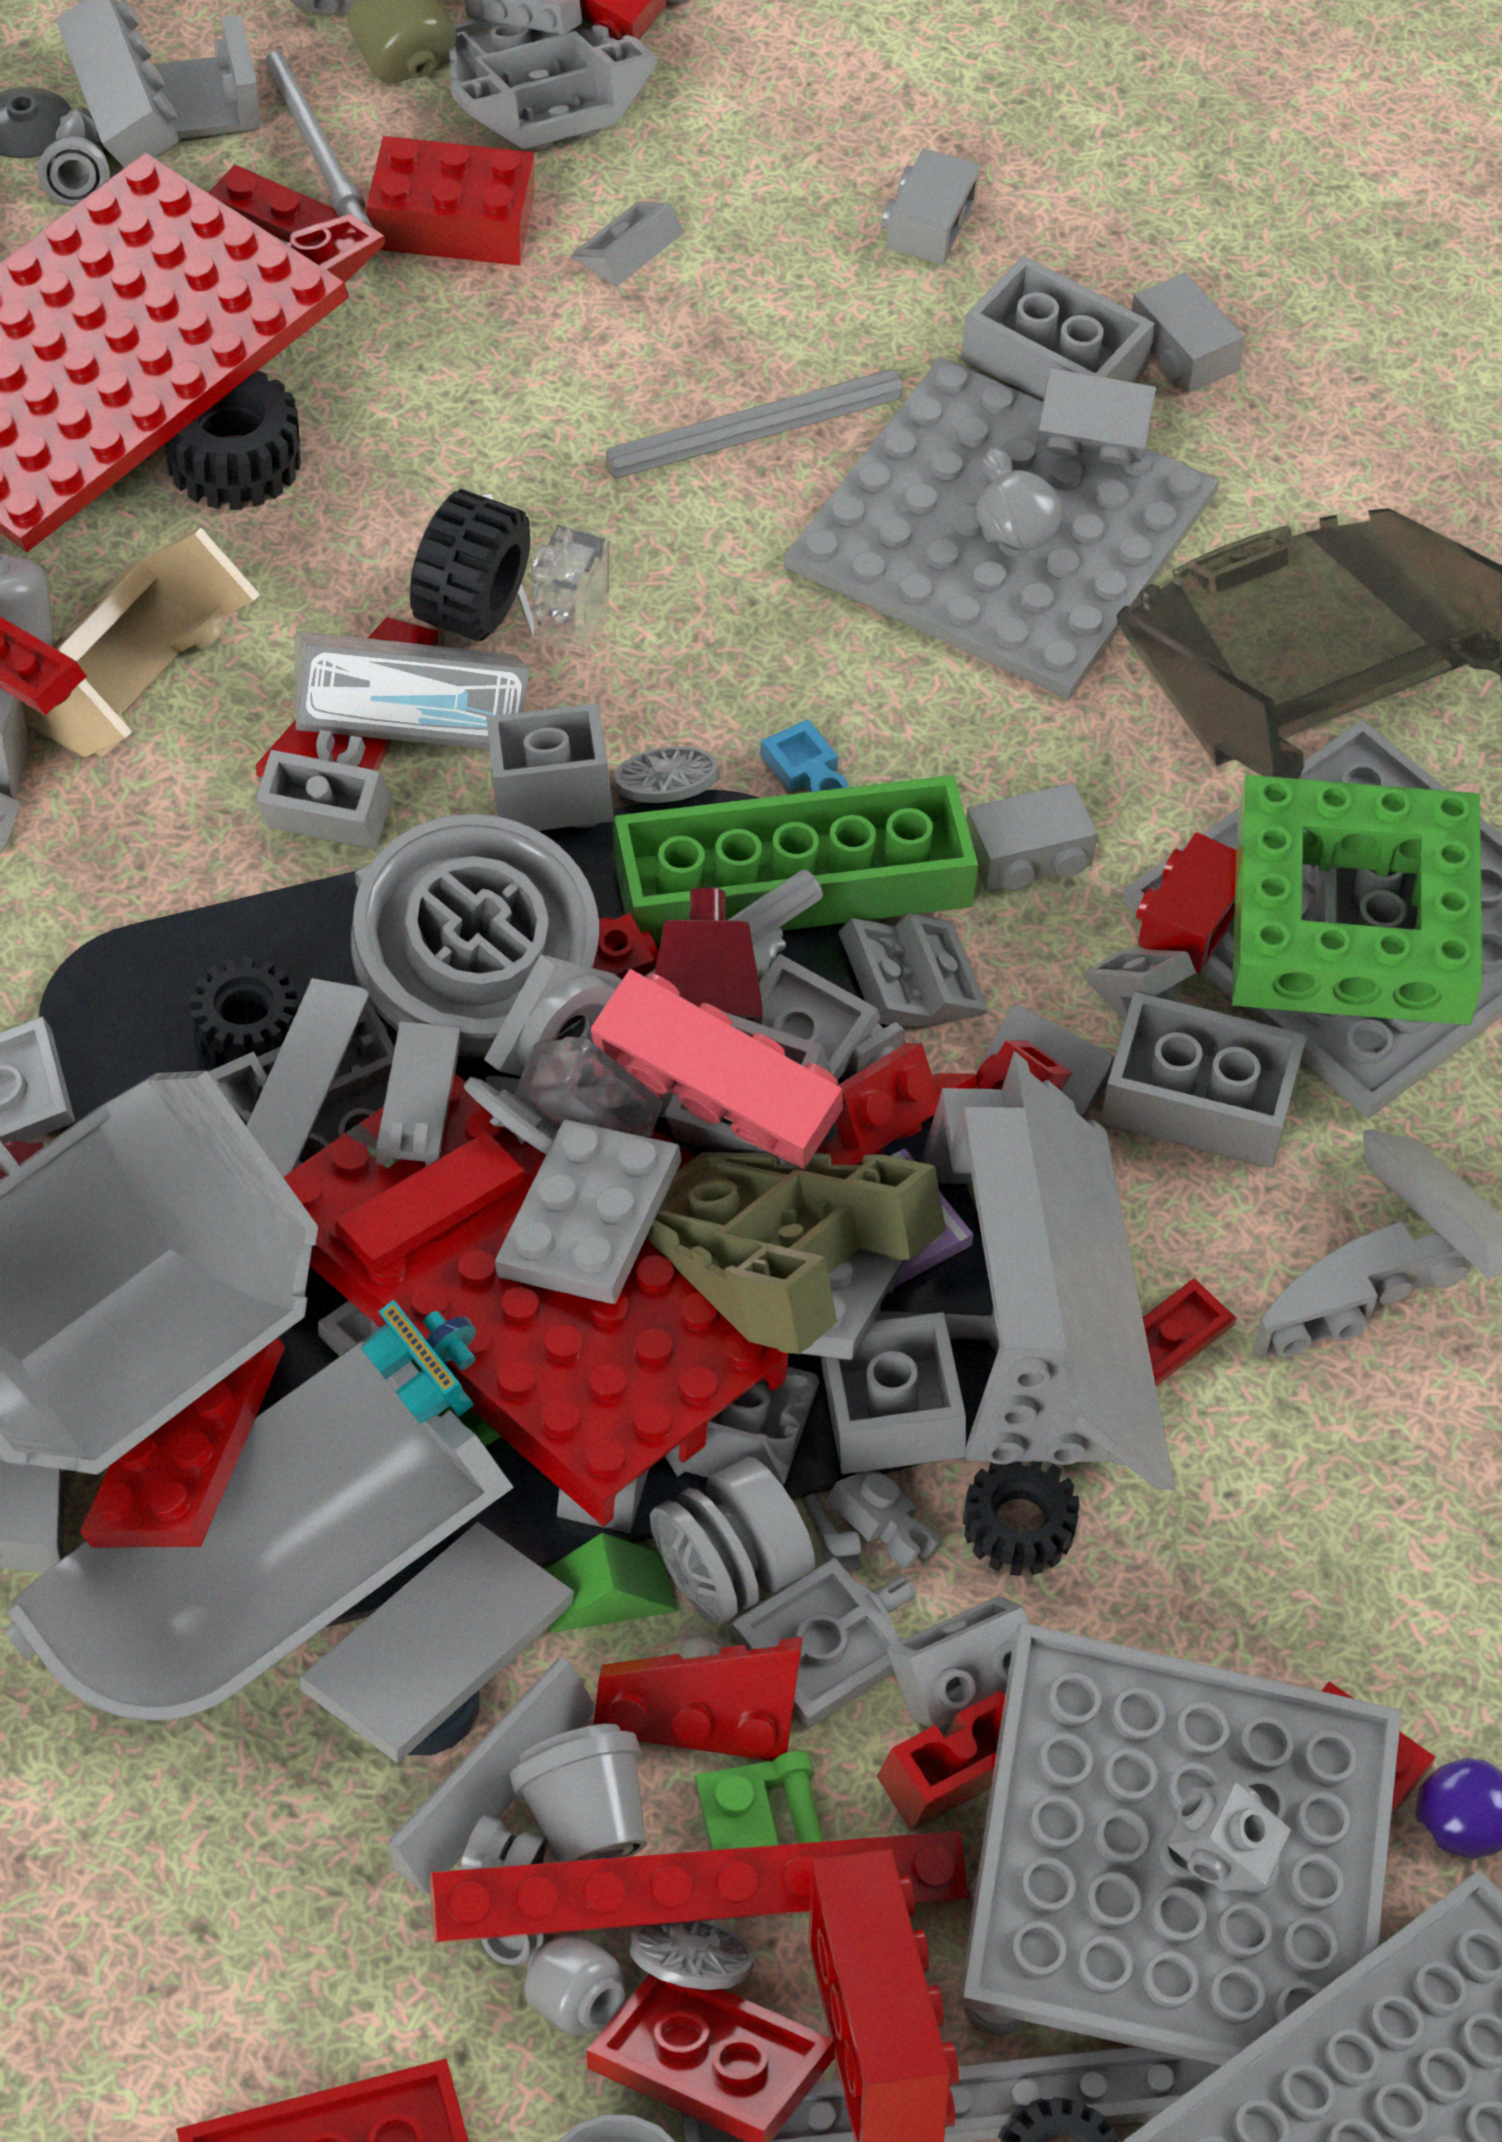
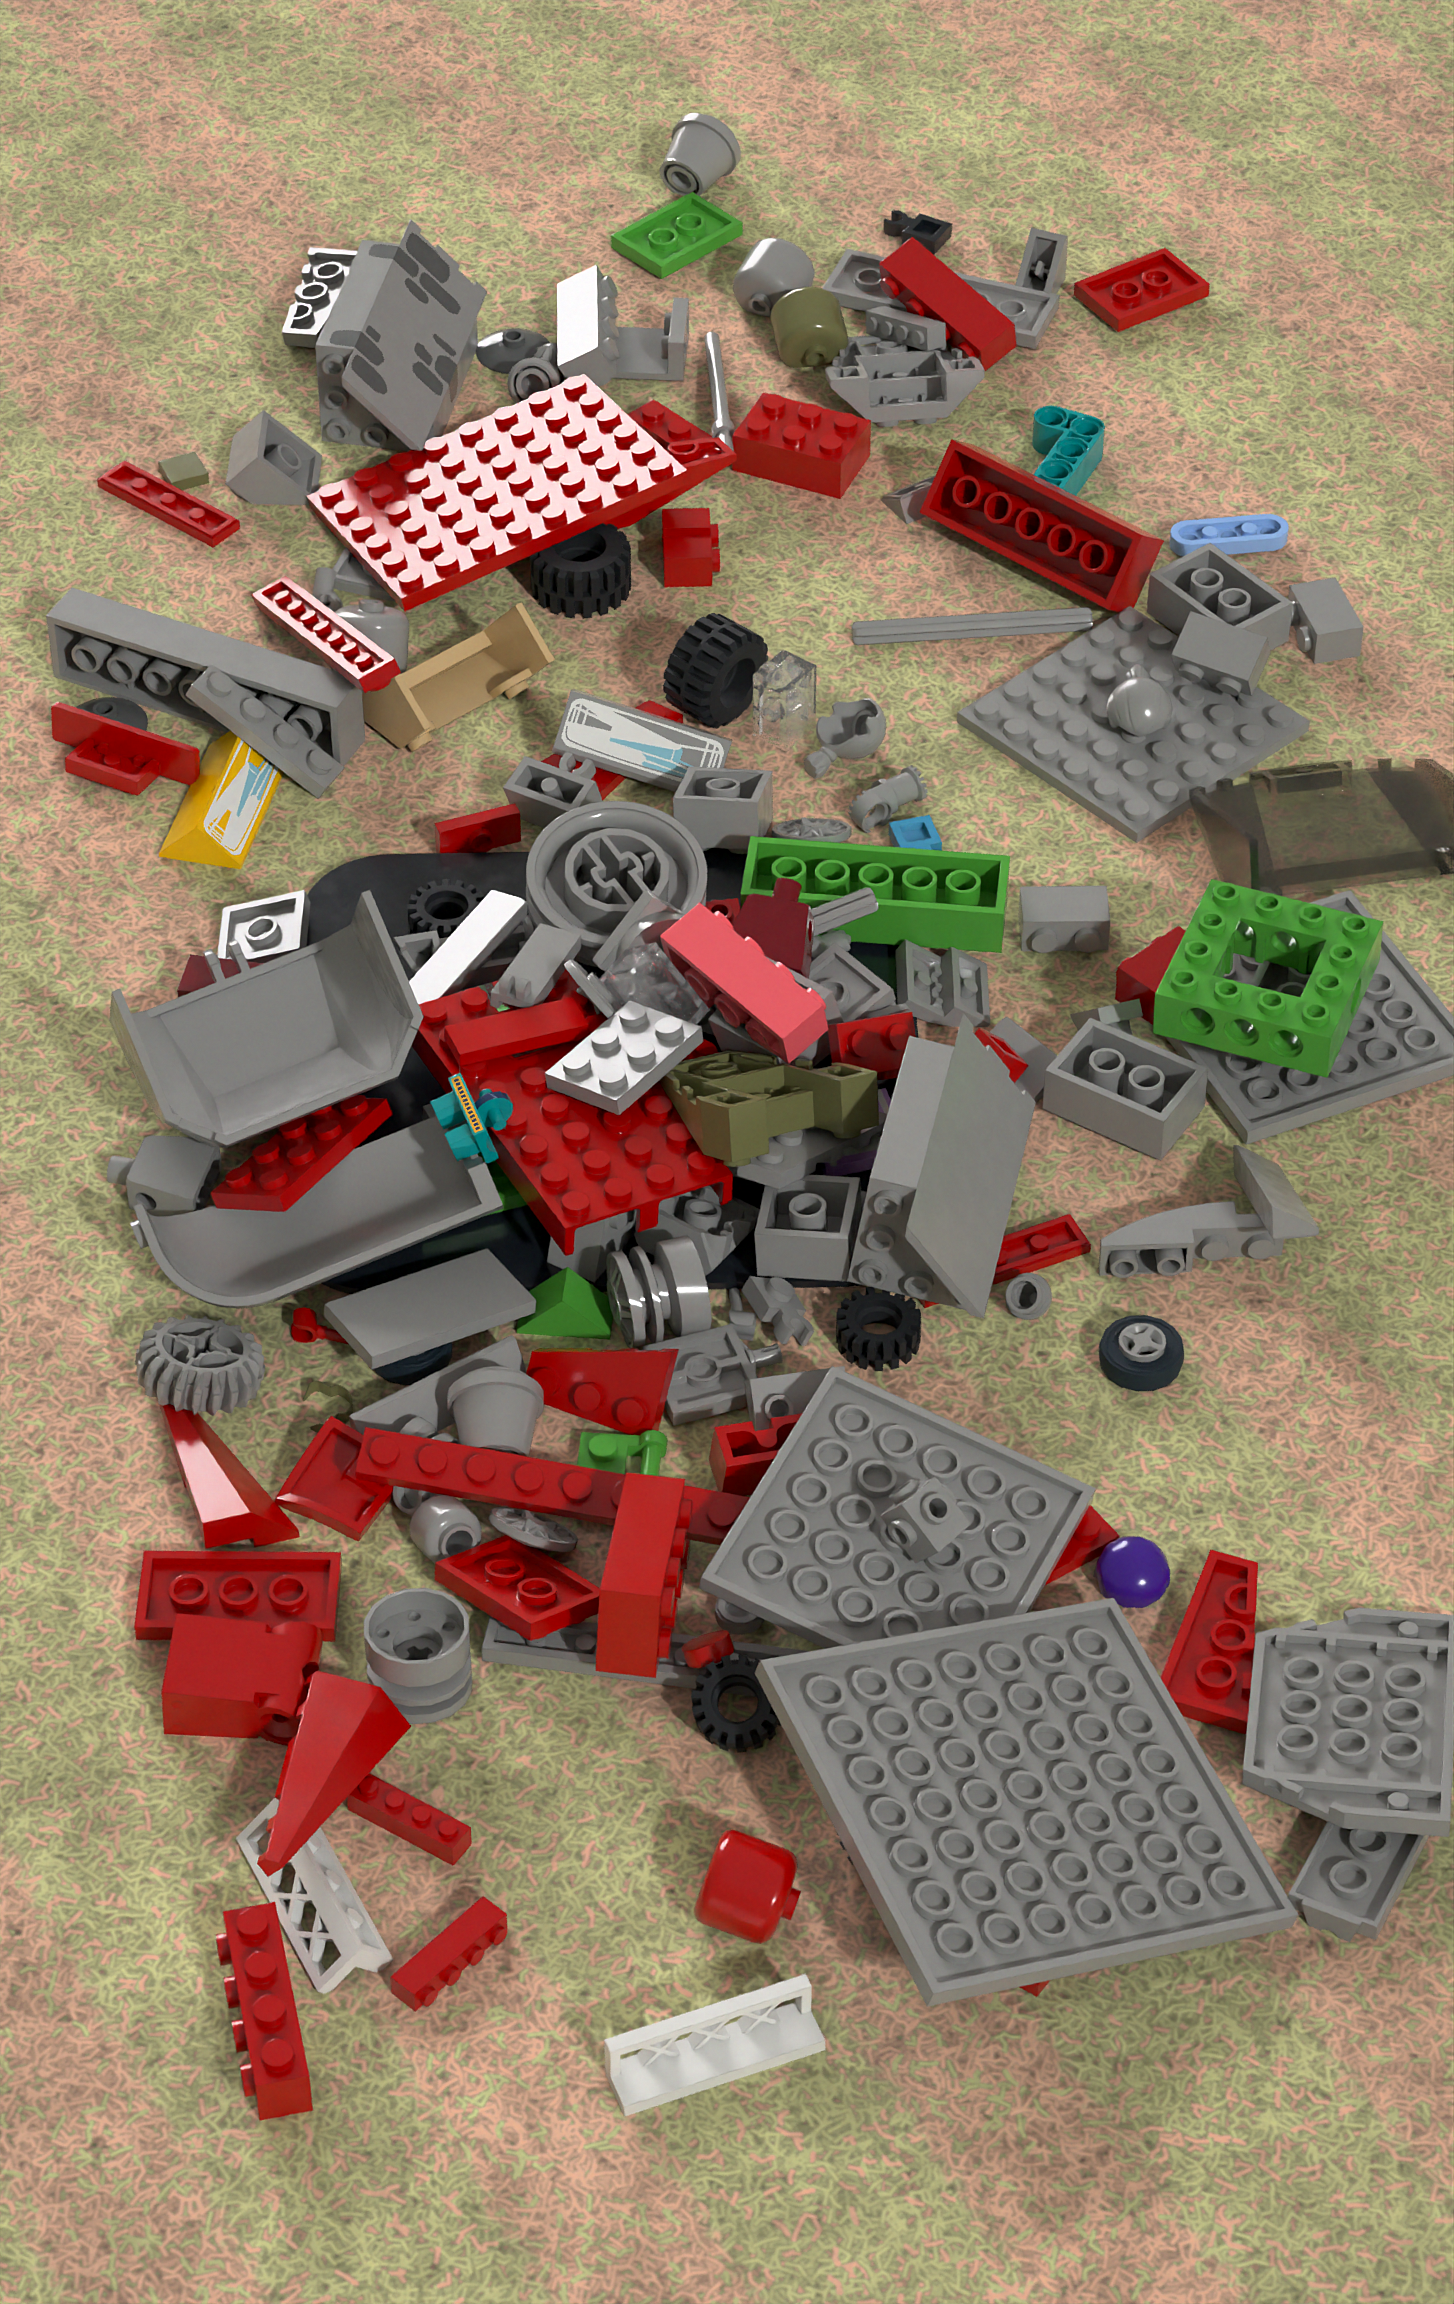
camera: 20 degrees right, 10 degrees down
(113, 1800) = (199, 1365): none -> light grey gear
(236, 867) = (479, 831): none -> red plate
(253, 2000) = (221, 1490): none -> red wedge
(270, 1702) = (305, 1328): none -> red hand
(337, 1792) = (318, 1386): none -> olive piece
(359, 378) = (688, 547): none -> red brick
(388, 1944) = (326, 1484): none -> red plate
(660, 616) = (849, 733): none -> light grey hair
(743, 700) = (887, 796): none -> light grey connector
(792, 133) = (1071, 444): none -> teal beam
(802, 268) = (1041, 526): none -> red brick
(931, 205) = (1165, 501): light grey brick -> none
(995, 240) = (1230, 534): none -> light blue plate
(996, 2092) = (707, 1648): none -> red tile
(1192, 1419) = (1028, 1296): none -> light grey plate
(1369, 1448) = (1123, 1351): none -> black wheel

